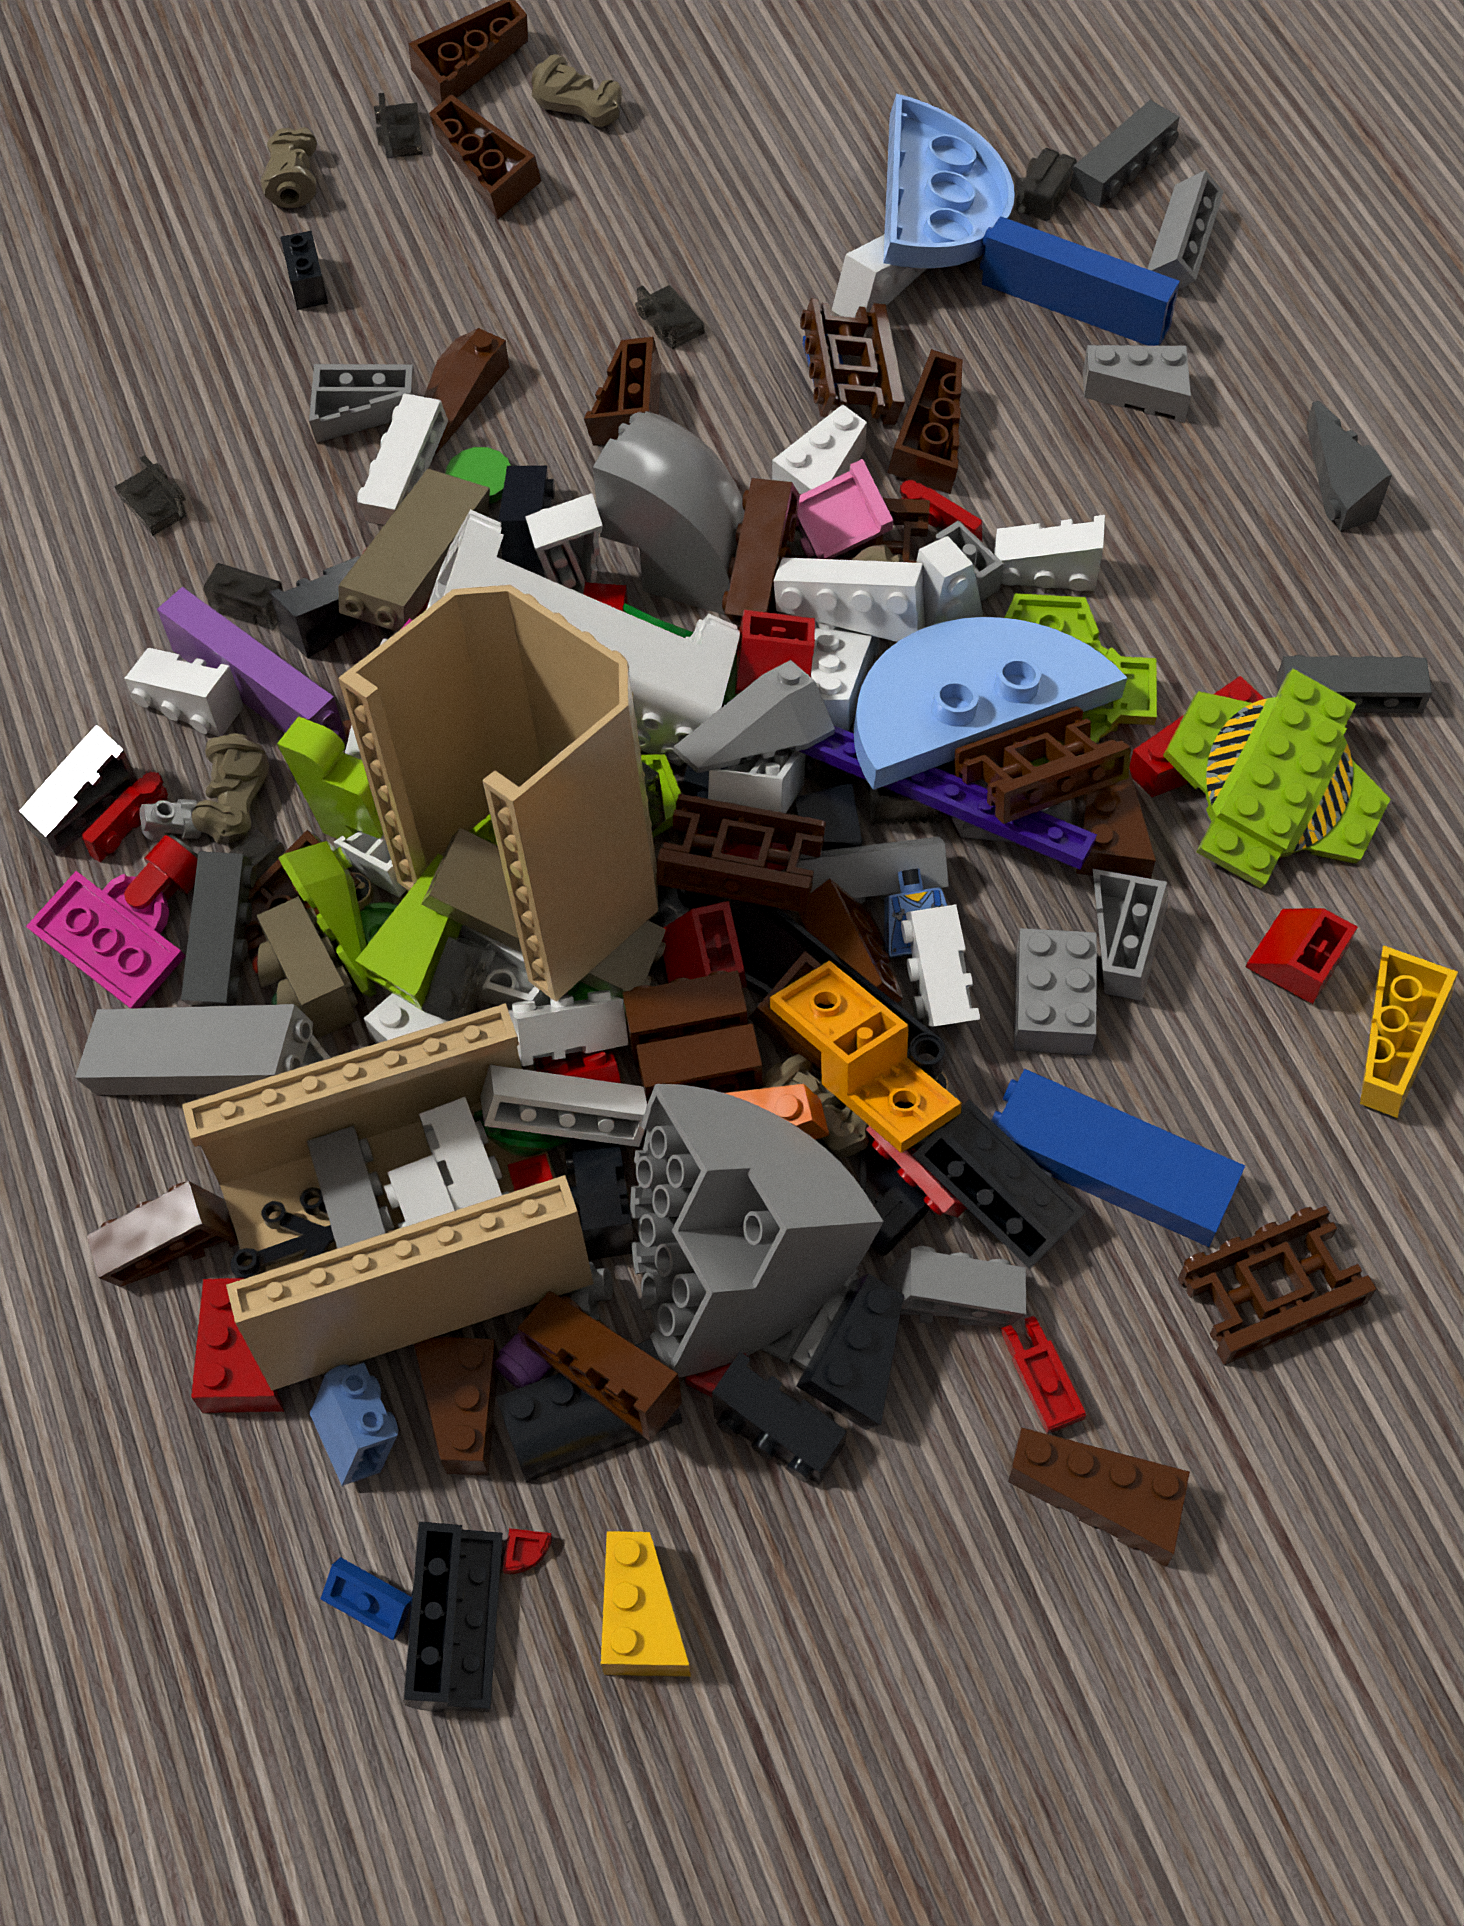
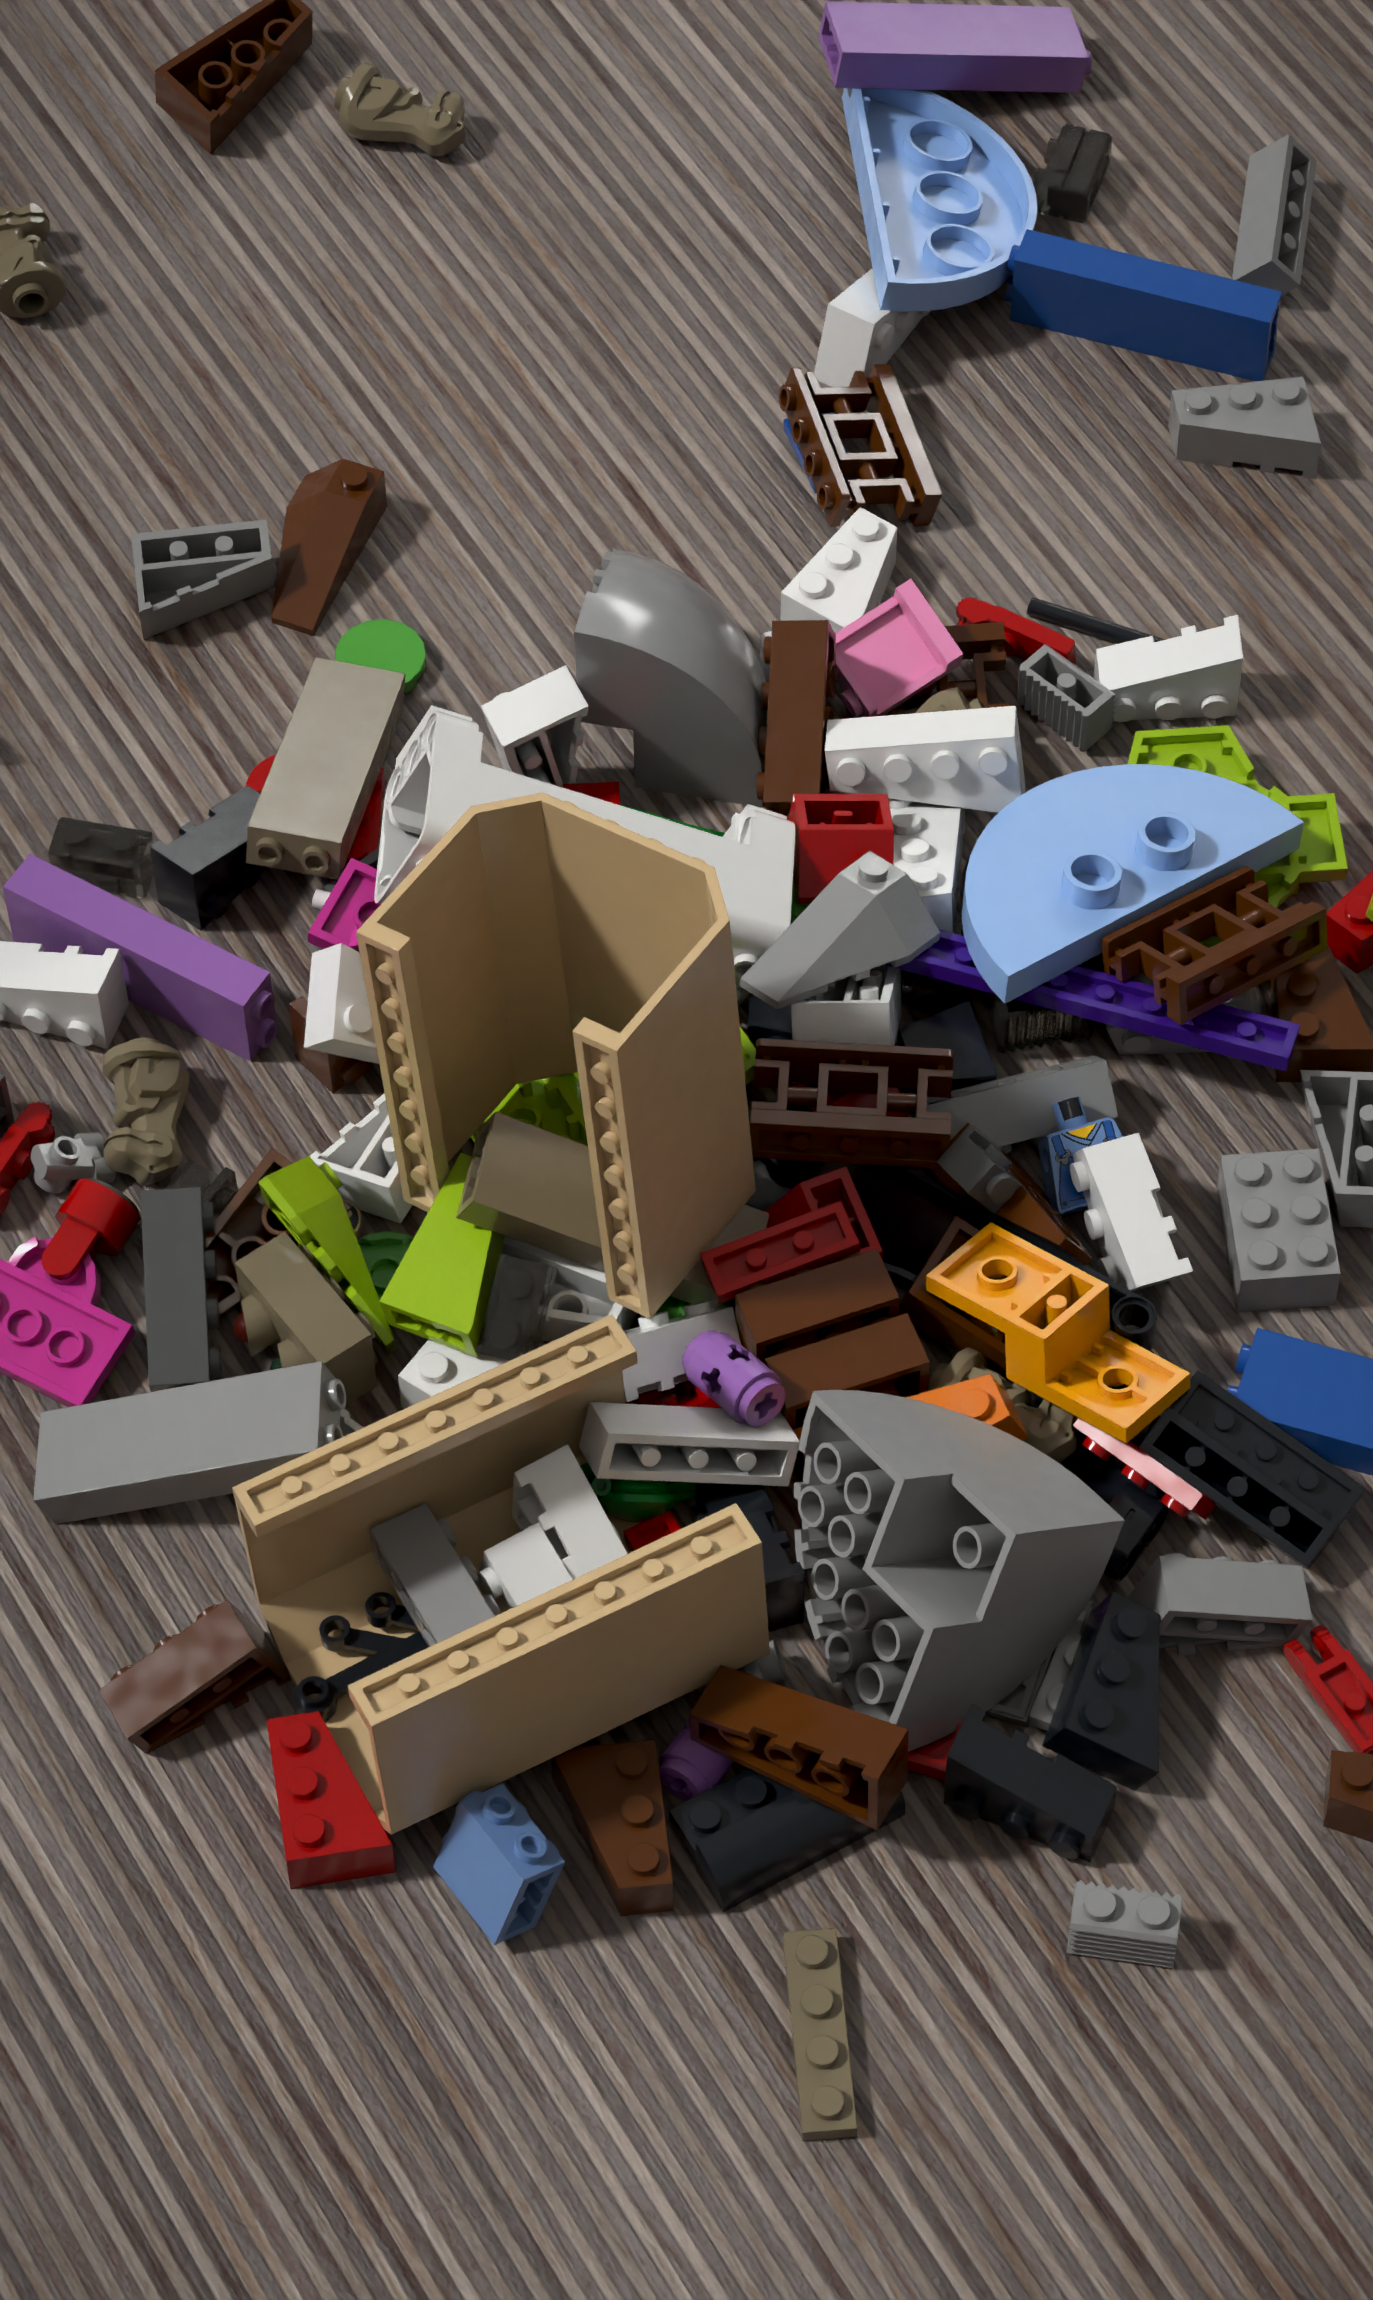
camera: 10 degrees left, 5 degrees down
(304, 270) = (75, 404): black brick -> none
(330, 780) = (304, 1086): lime brick -> none
(366, 1598) = (557, 2068): blue plate -> none
(398, 129) = (159, 189): clear smoke bracket -> none
(403, 456) = (275, 649): white brick -> none
(452, 1619) = (673, 2074): black brick -> none
(486, 156) = (292, 215): reddish brown wedge -> none
(524, 493) = (461, 682): black wedge -> none
(525, 1550) = (740, 1988): red tile -> none
(578, 1599) = (819, 2034): none -> dark tan plate
(608, 1058) = (733, 1378): none -> medium lavender piece
(629, 389) = (565, 526): reddish brown wedge -> none
(638, 1616) = (901, 2034): yellow wedge -> none
(664, 961) = (780, 1251): none -> red plate
(669, 316) = (593, 411): clear smoke bracket -> none
(828, 918) = (980, 1169): none -> dark grey brick
(832, 1546) = (1124, 1924): none -> light grey brick
(930, 432) = (982, 529): reddish brown wedge -> none
(948, 583) = (1051, 728): white wedge -> none
(974, 85) = (953, 47): none -> medium lavender brick
(993, 508) = (1084, 622): none -> black bar
(1125, 153) = (1173, 119): dark grey brick -> none

